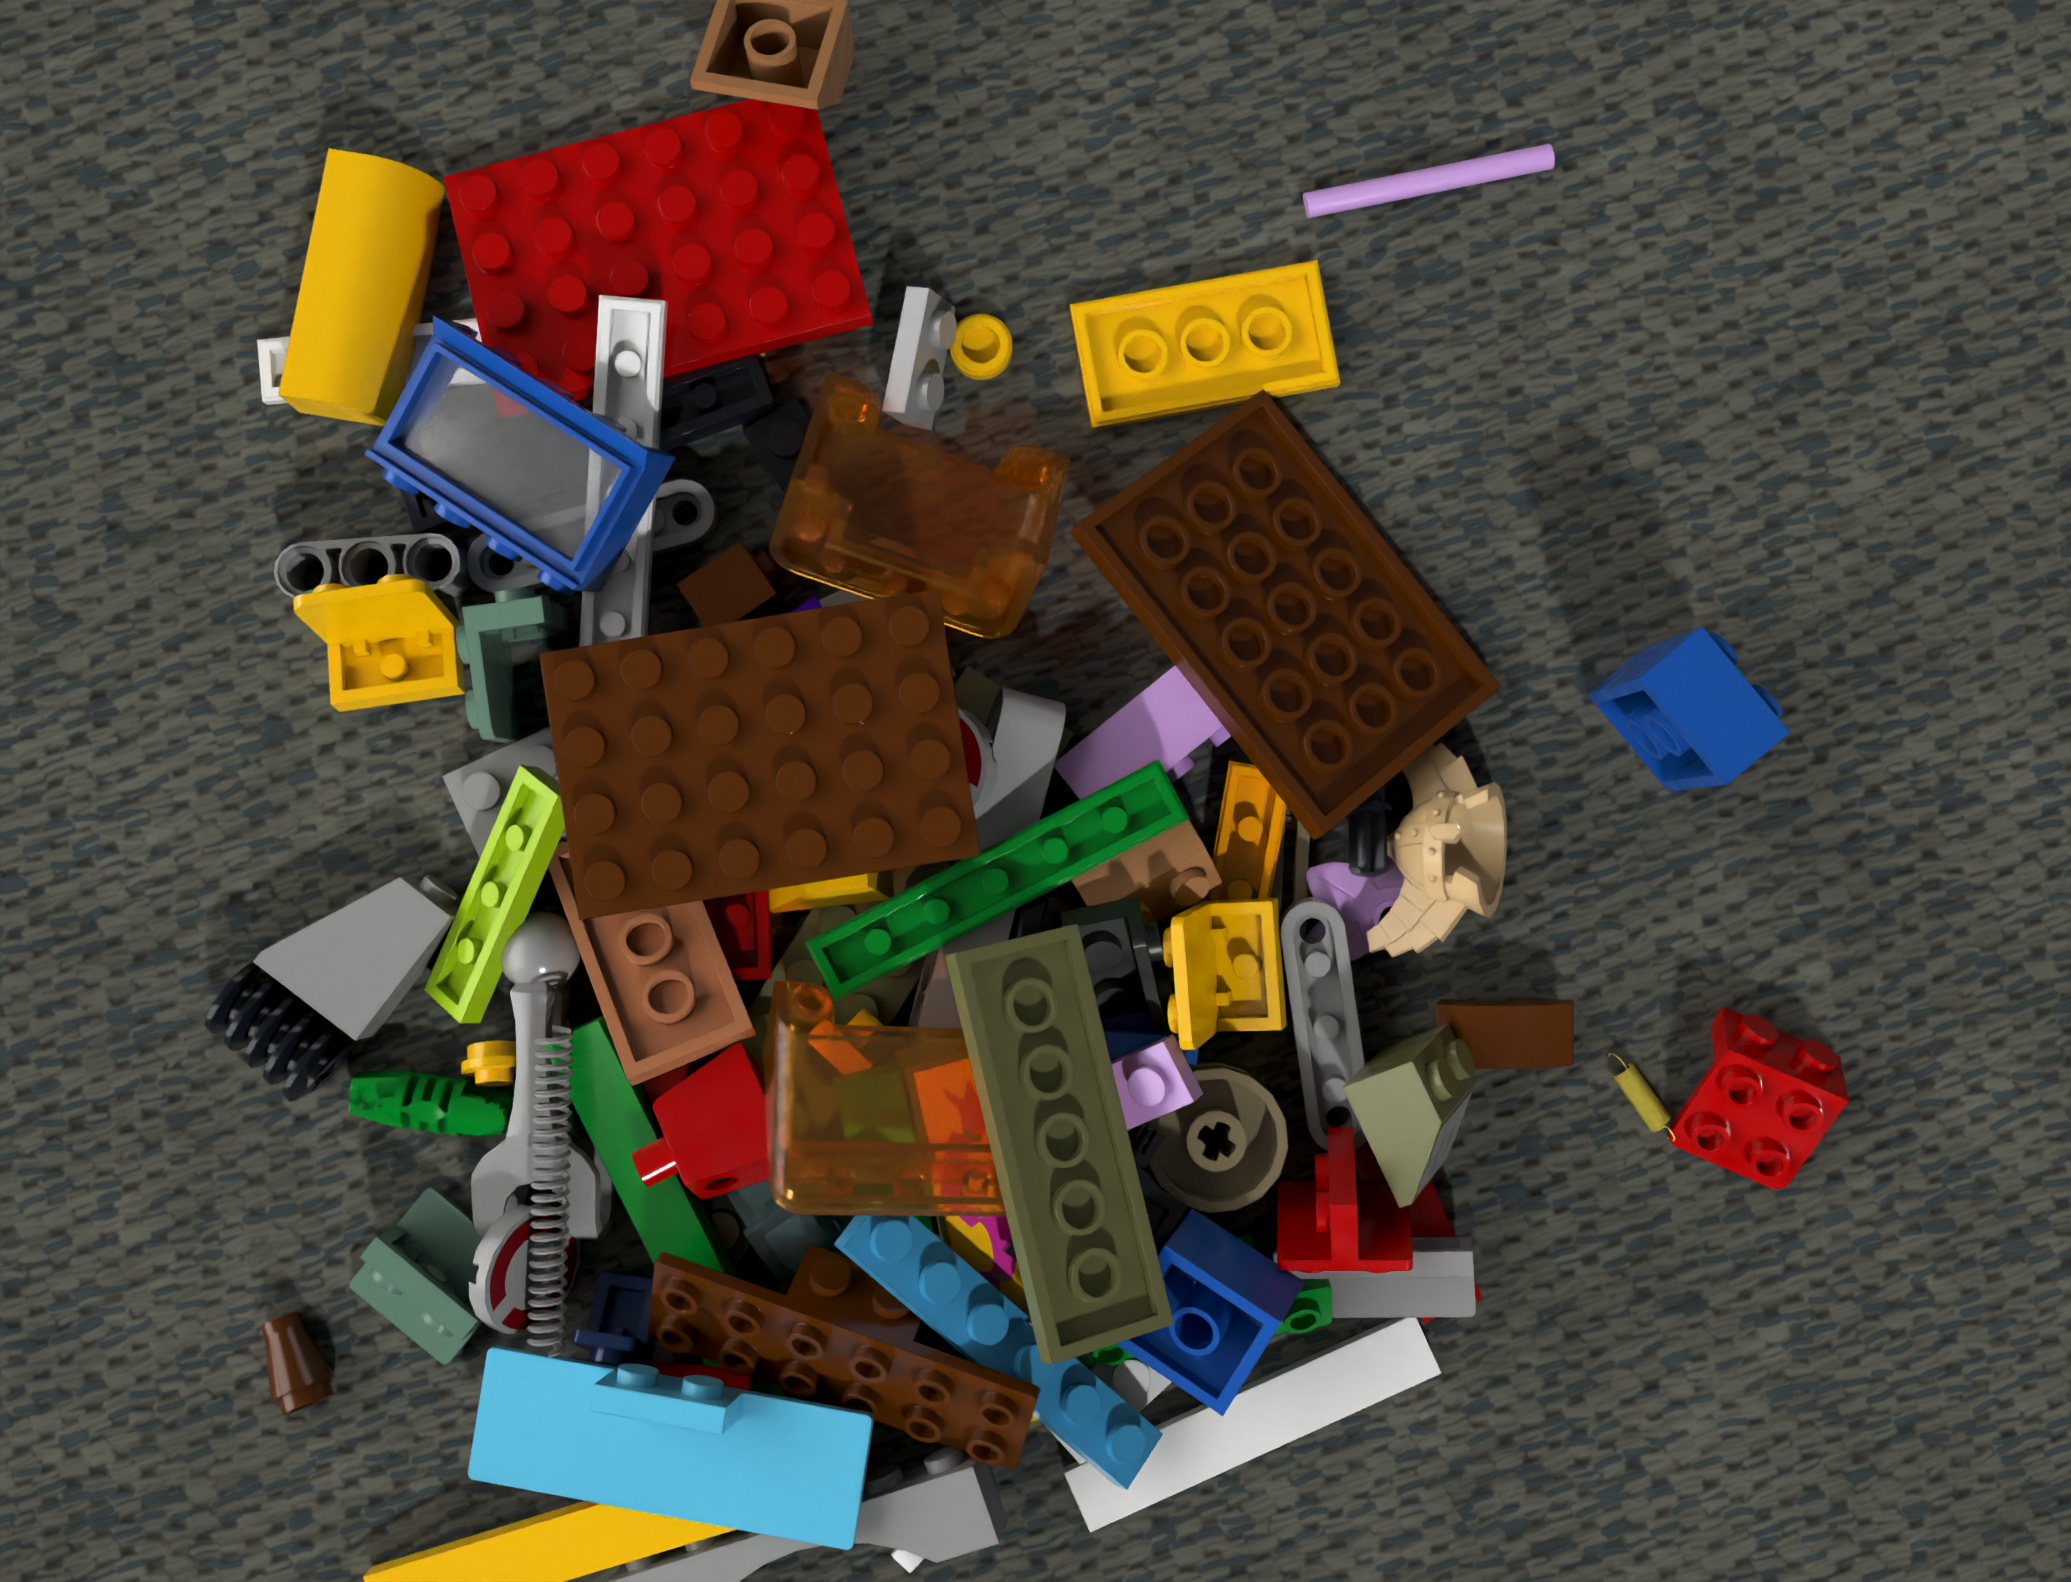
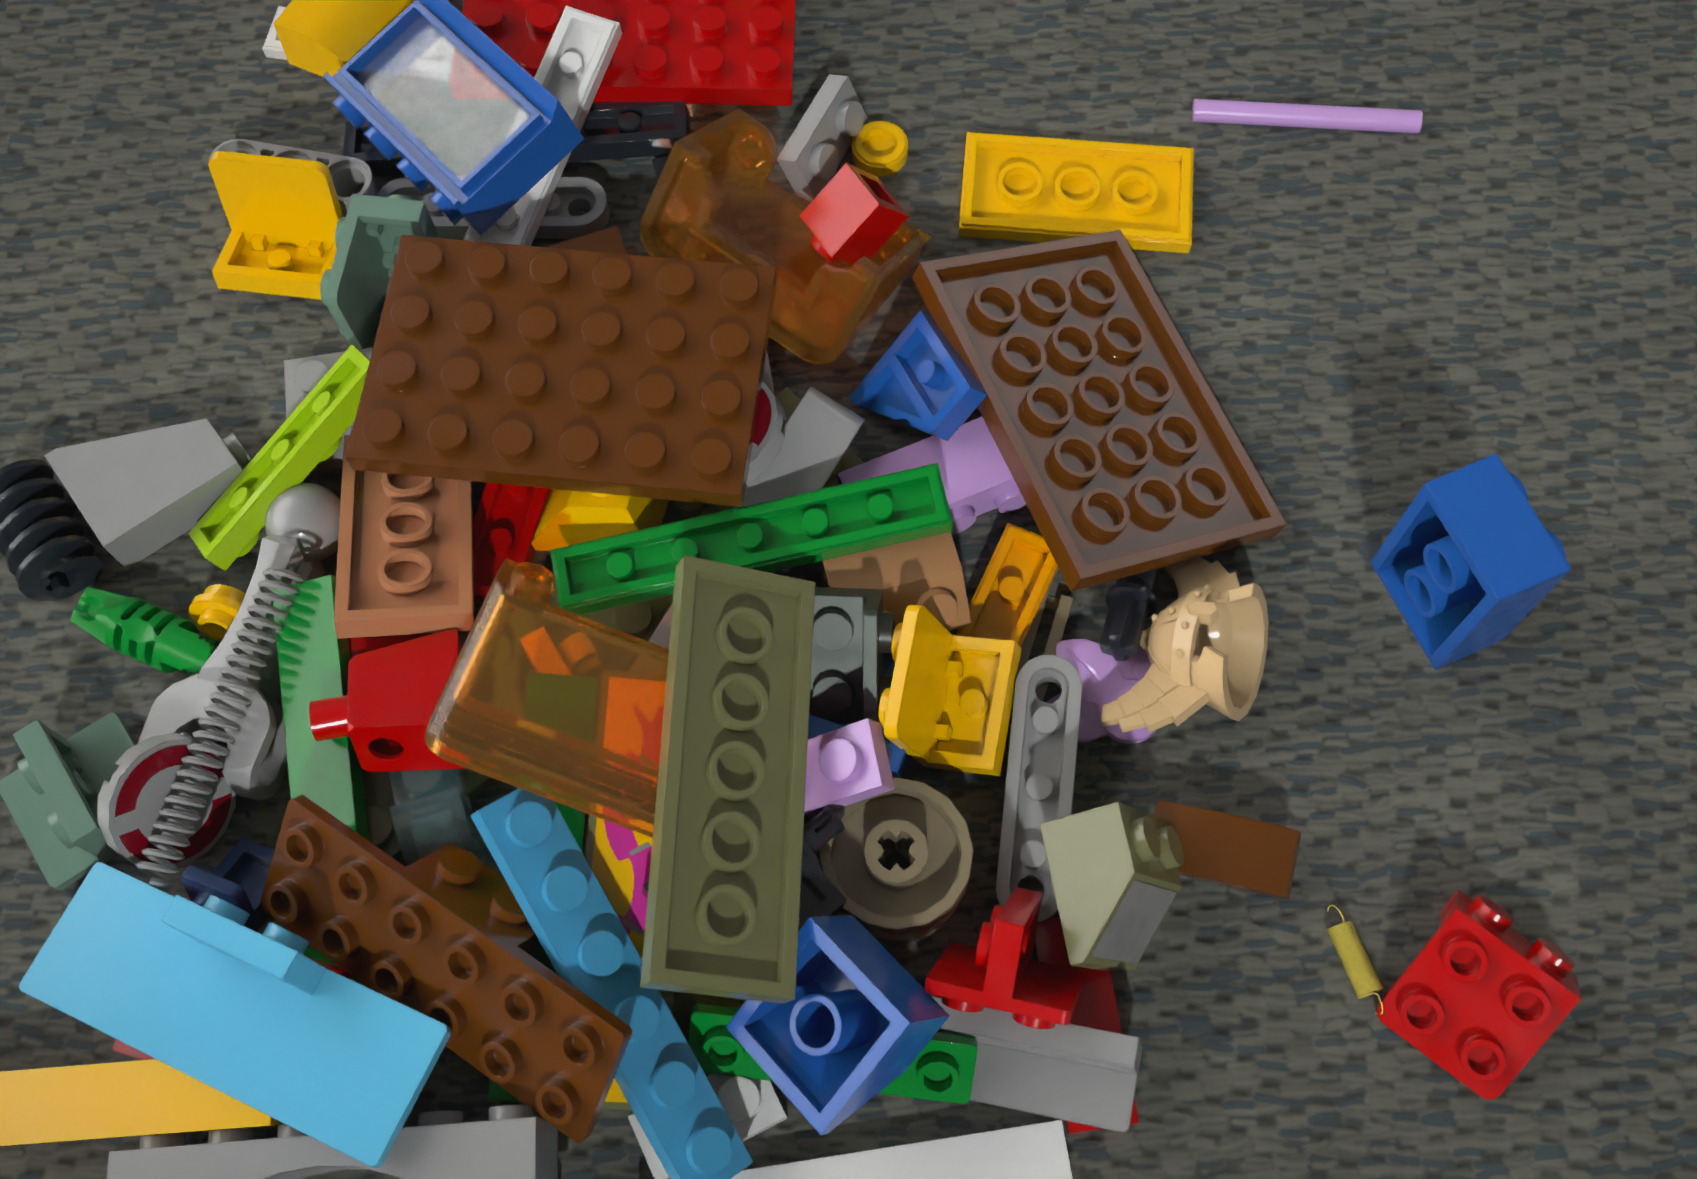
camera: 15 degrees right, 20 degrees down
(986, 466) = (852, 216): none -> brick
(1110, 645) = (921, 382): none -> blue wing

